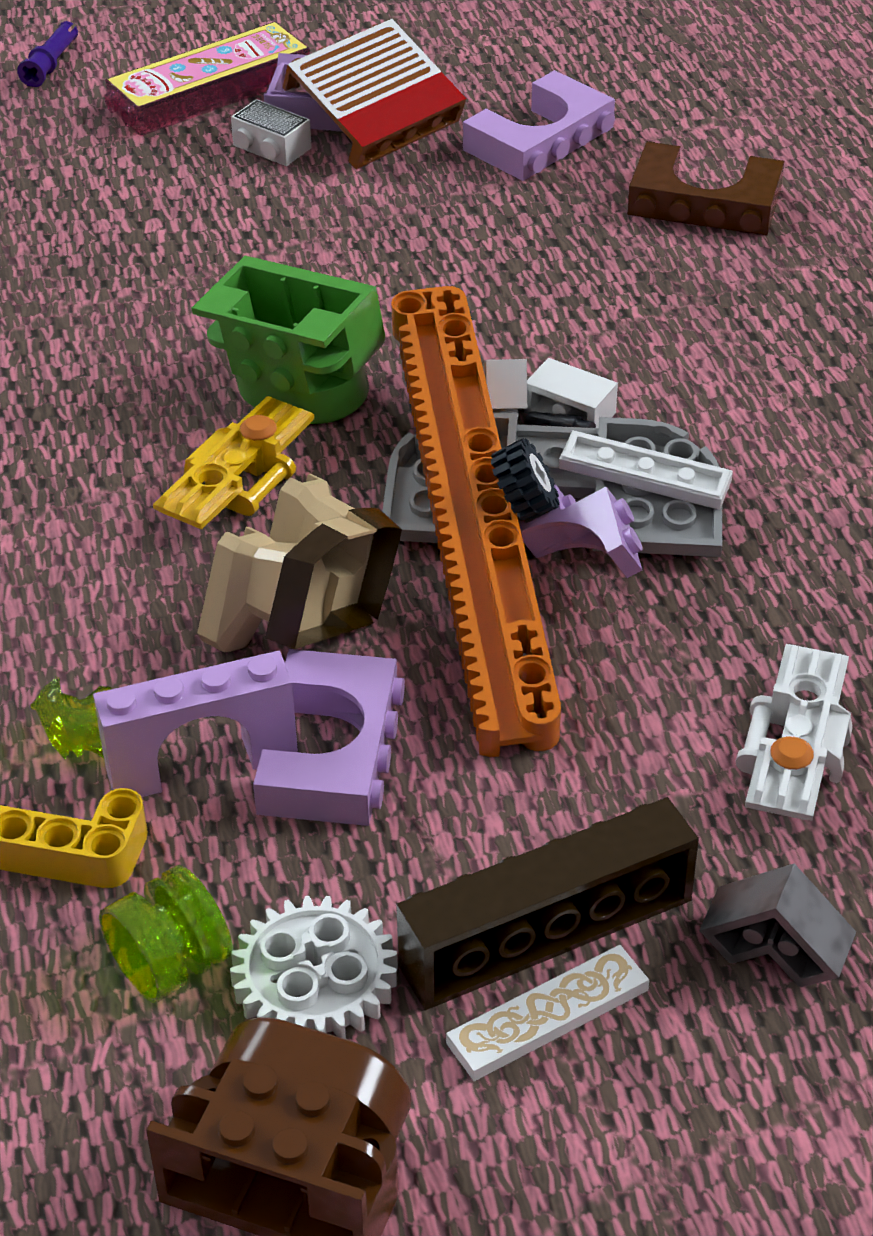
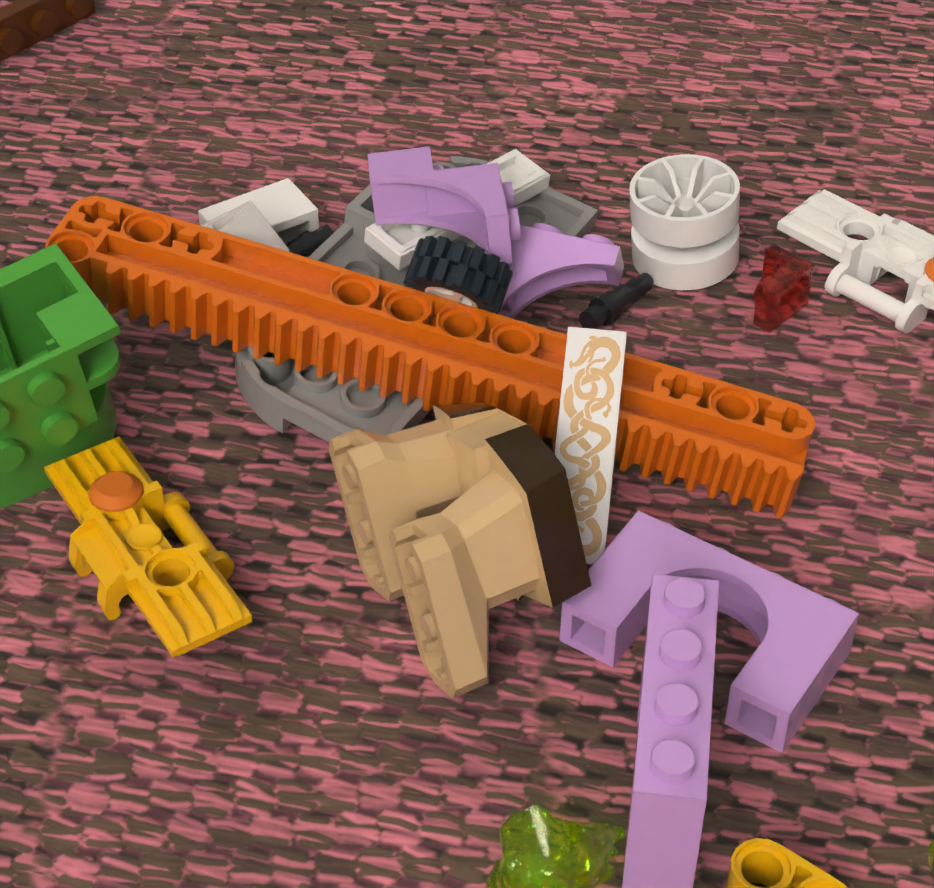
camera: 65 degrees left, 0 degrees up
(434, 603) = (590, 427): none -> tile
(611, 447) = (457, 199): none -> lavender arch
(642, 597) = (615, 302): none -> black animal
(717, 677) = (782, 288): none -> clear red bracket
(736, 591) = (685, 221): none -> white wheel

